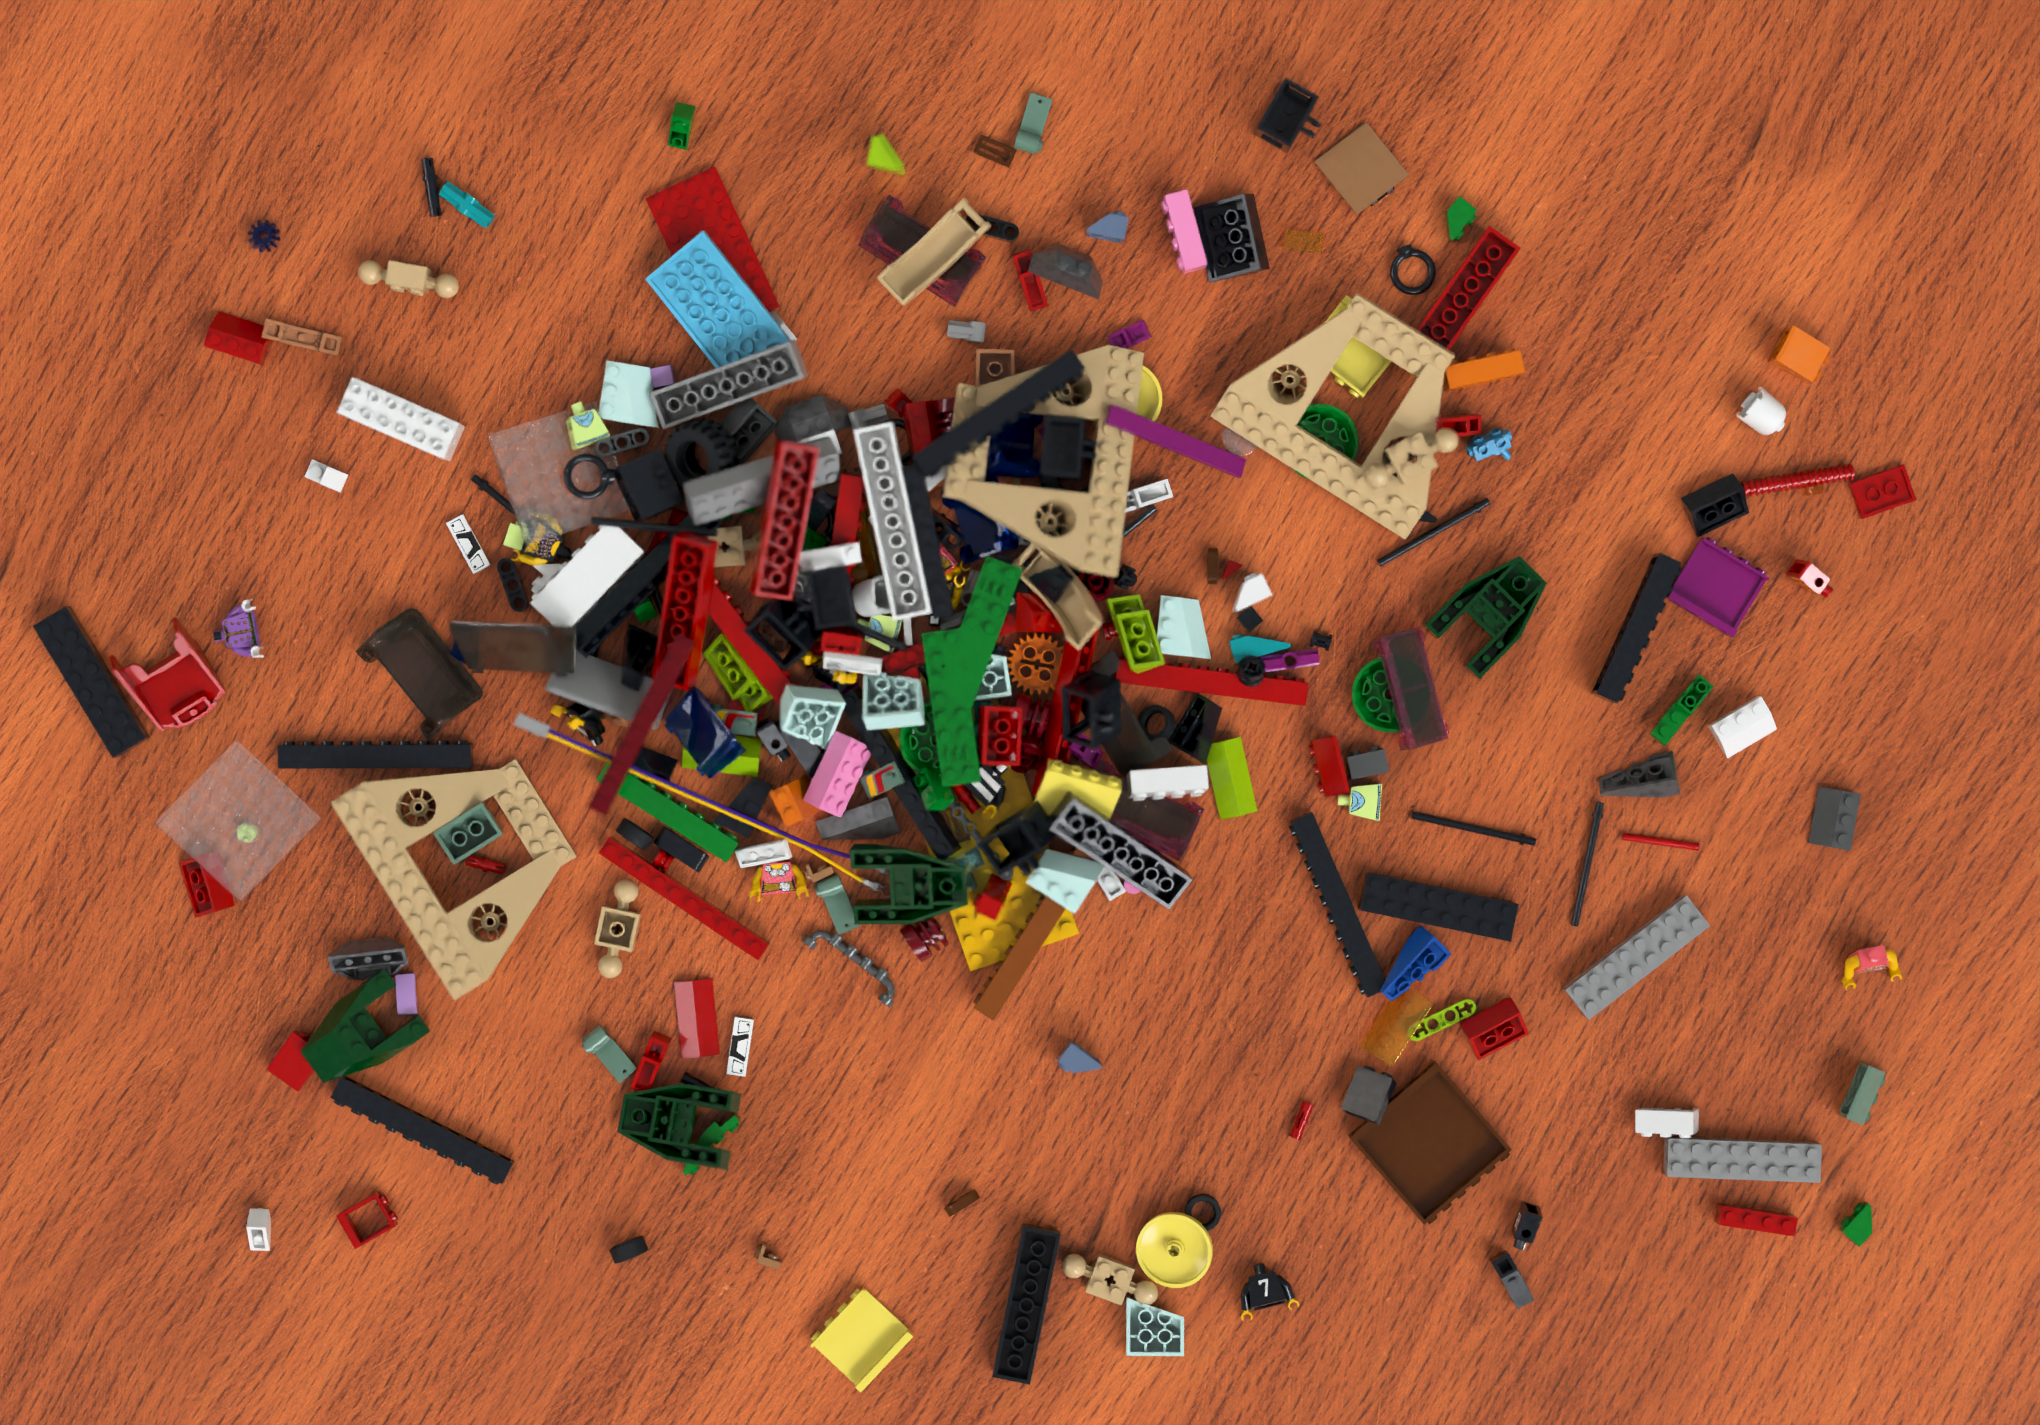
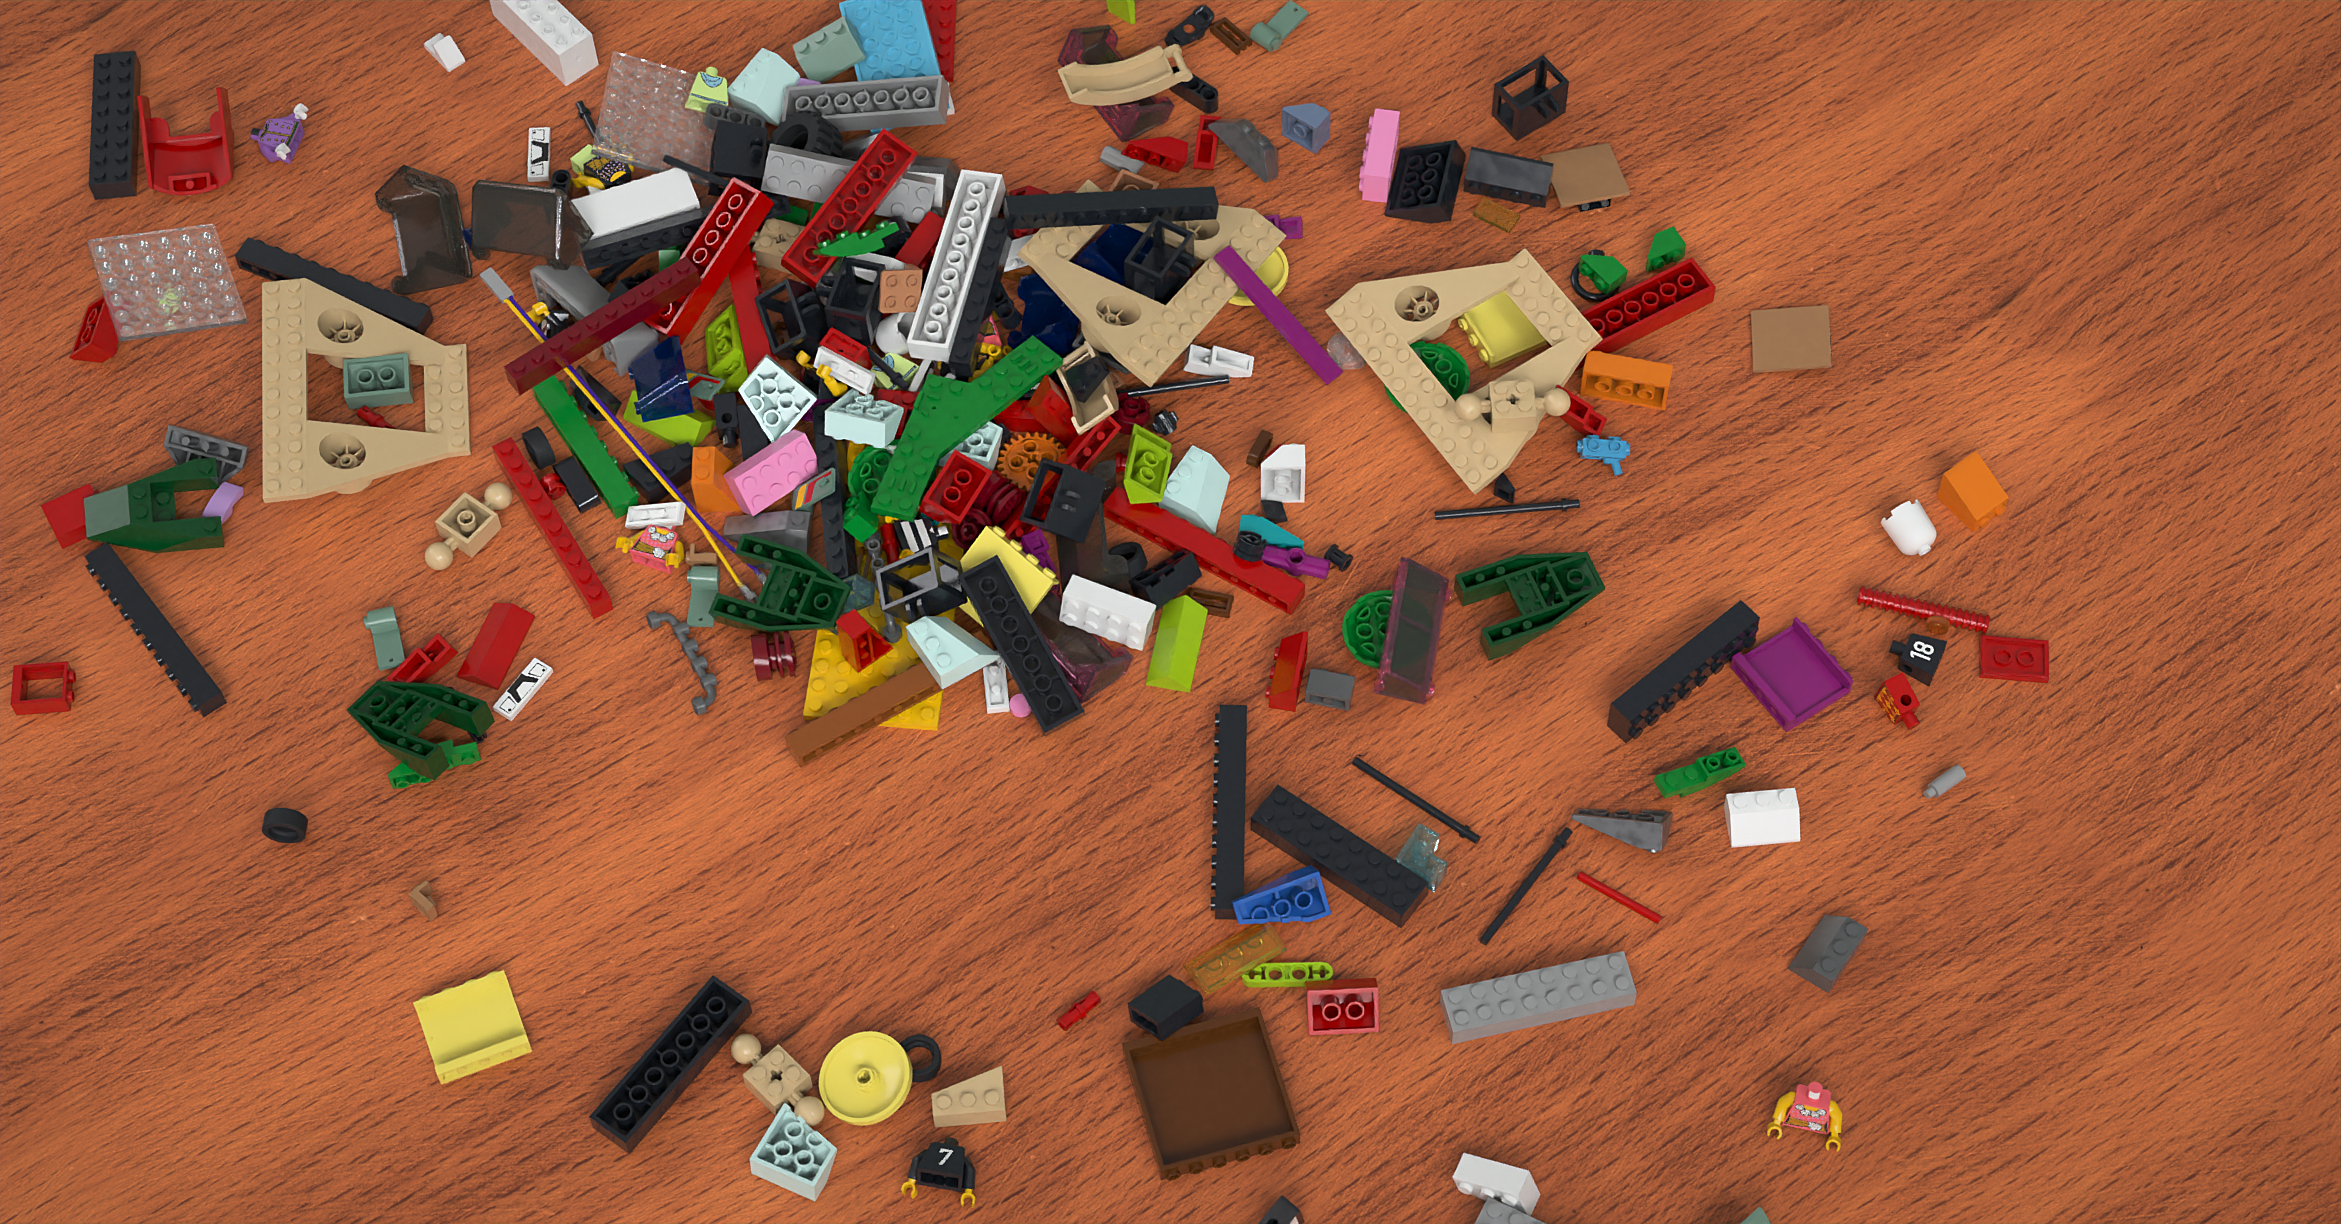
camera: 25 degrees right, 30 degrees down
(607, 476) = (703, 140): black piece -> none
(665, 335) = (830, 50): none -> sand green slope
(808, 559) = (856, 244): none -> green slope
(868, 576) = (900, 290): none -> nougat bracket
(960, 146) = (1199, 19): none -> black piece
(961, 1202) = (662, 935): reddish brown beam -> none
(1000, 309) = (1160, 152): none -> red slope
(1077, 1059) = (866, 838): sand blue slope -> none
(1252, 721) = (1213, 608): none -> reddish brown tile
(1260, 1229) = (971, 1101): none -> tan wedge
(1301, 206) = (1508, 177): none -> black slope
(1363, 801) = (1308, 722): yellowish green torso -> none
(1422, 269) = (1603, 271): none -> green slope
(1497, 882) = (1419, 857): none -> clear light blue brick
(1597, 262) = (1791, 339): none -> medium nougat piece
(1715, 505) = (1823, 598): black slope -> none
(1810, 526) = (1919, 656): none -> black torso
(1868, 630) = (1945, 782): none -> light grey cylinder

